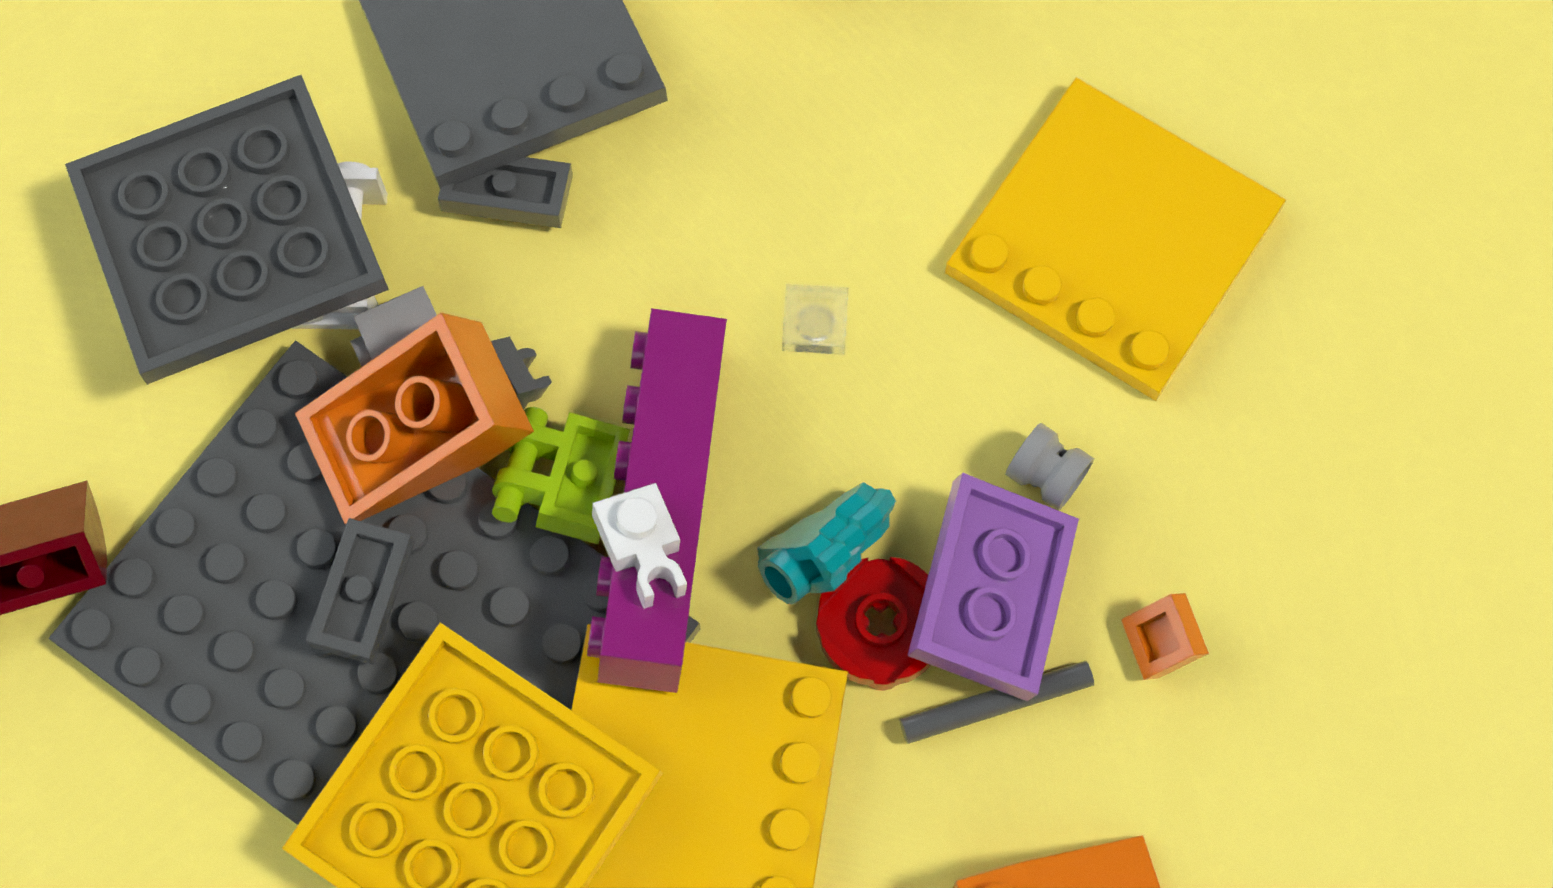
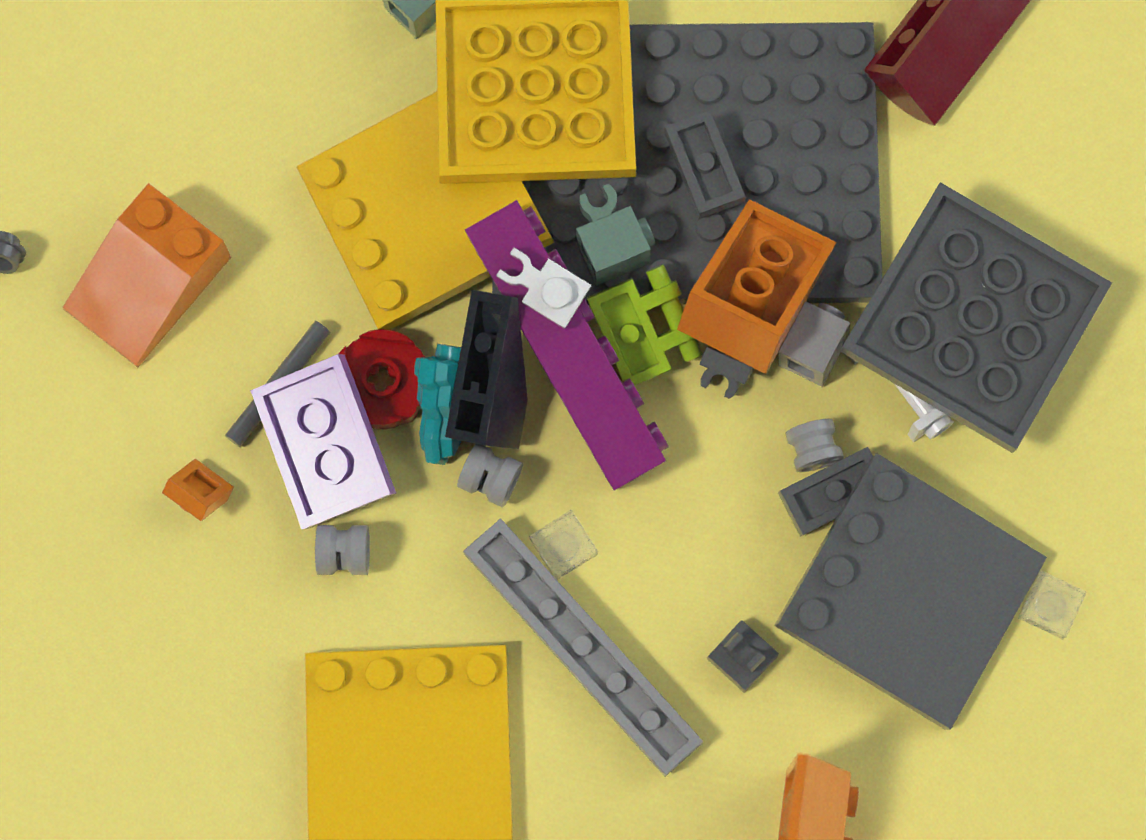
camera: 145 degrees right, 5 degrees up
(488, 240) = (814, 445): none -> light grey wheel
(523, 572) = (612, 240): none -> sand green brick
(718, 104) = (742, 656): none -> dark grey tile
(769, 516) = (490, 375): none -> black slope
(839, 436) = (490, 475): none -> light grey wheel
(871, 216) = (583, 647): none -> light grey plate

